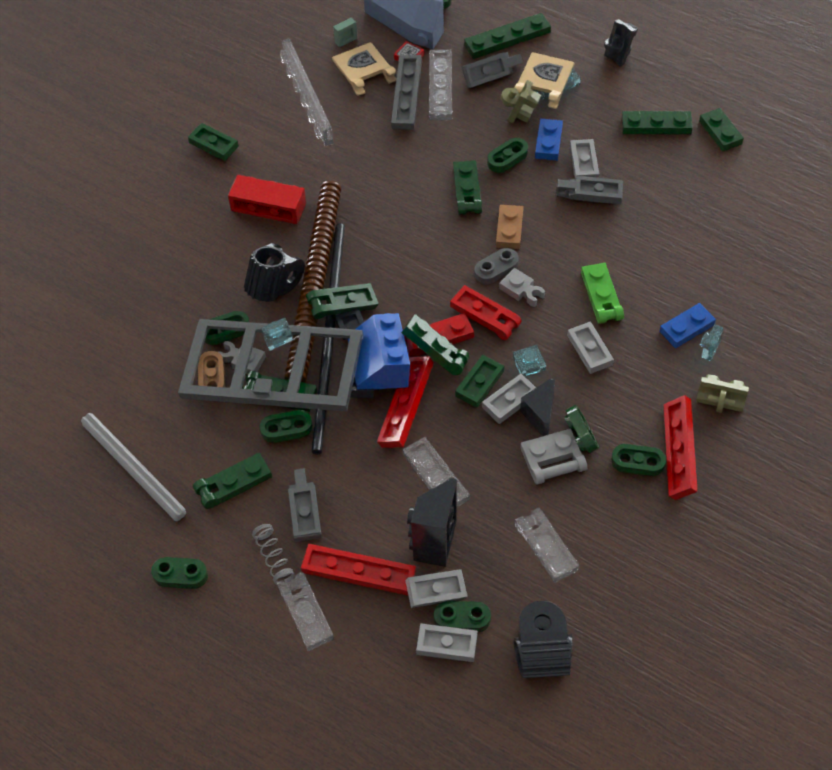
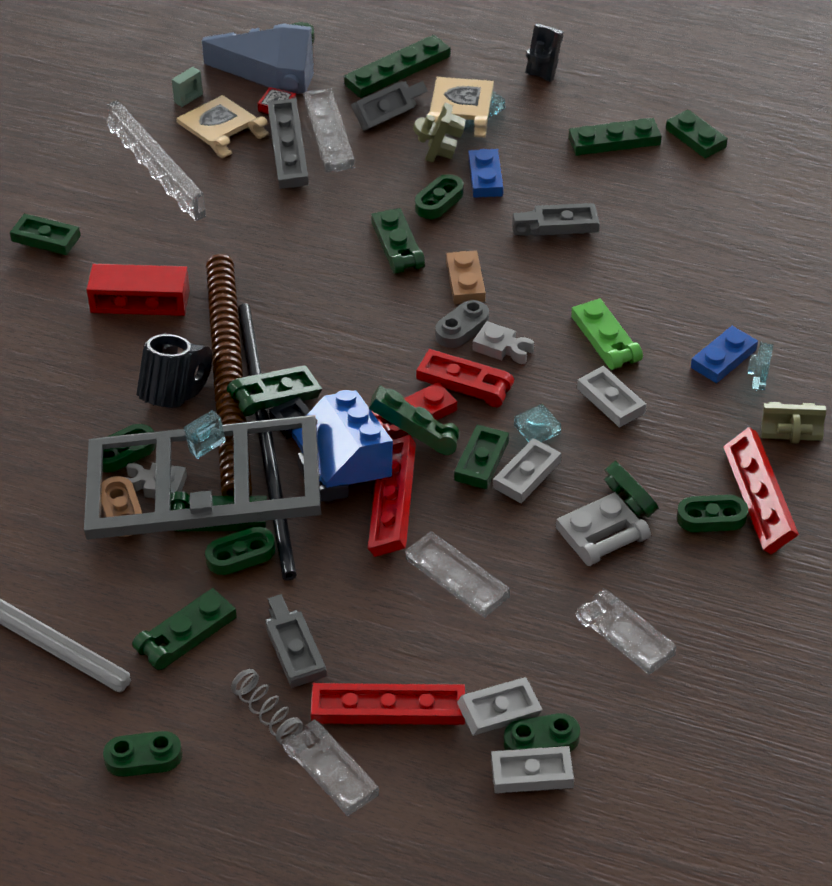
camera: 15 degrees left, 10 degrees down
(433, 524) = (477, 635): black slope -> none
(538, 406) = (567, 473): black slope -> none
(543, 641) = (656, 749): black piece -> none
(584, 158) = (537, 186): light grey plate -> none

